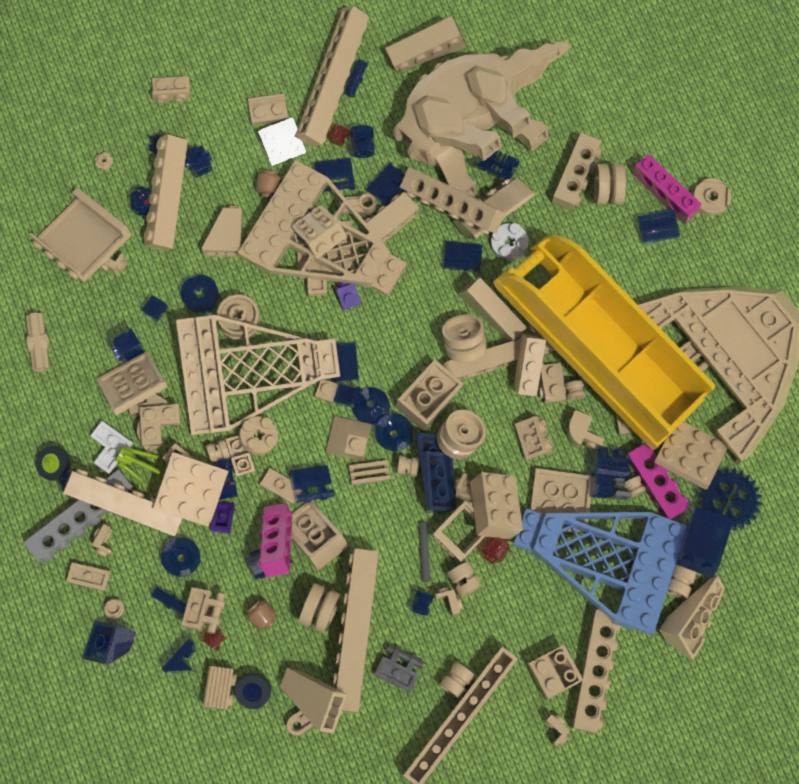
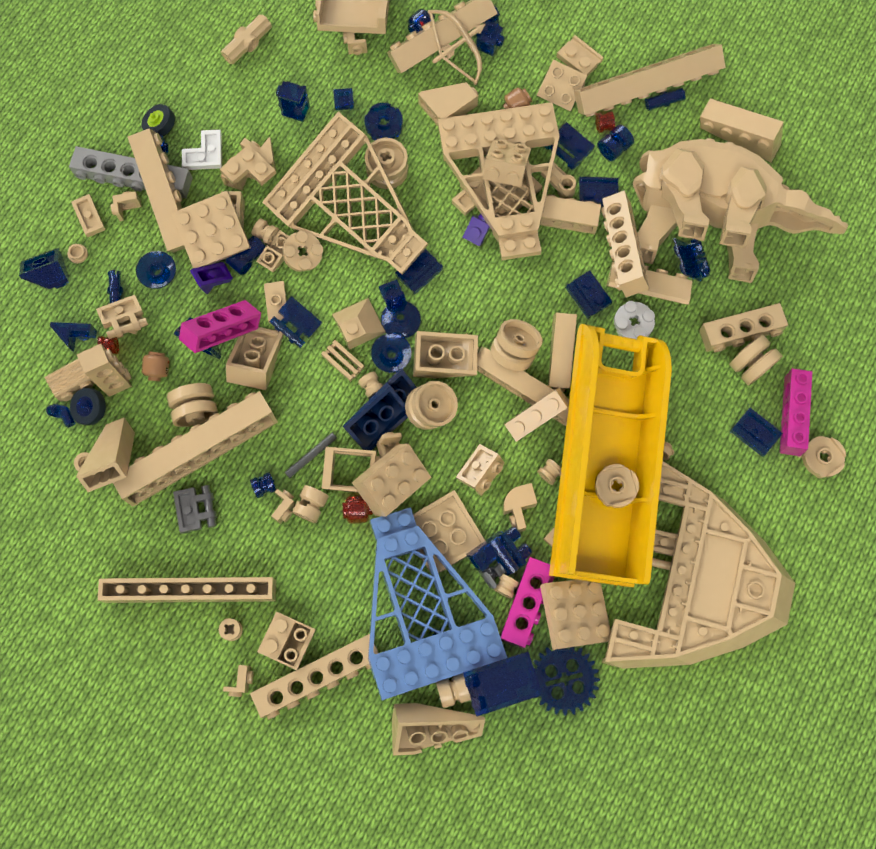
camera: 55 degrees right, 0 degrees up
(126, 457) = (202, 168): lime plant -> none
(131, 383) = (265, 125): tan plate -> none
(186, 199) = (449, 50): none -> tan piece
(239, 714) = (62, 412): none -> clear blue arm
(244, 651) = (105, 370): none -> tan brick
(326, 391) = (383, 274): tan plate -> none
(458, 679) = (214, 564): tan wheel -> none
(510, 710) = (234, 632): none -> tan wheel
(552, 384) = (541, 447): tan bracket -> none
(623, 342) = (626, 493): none -> tan plate

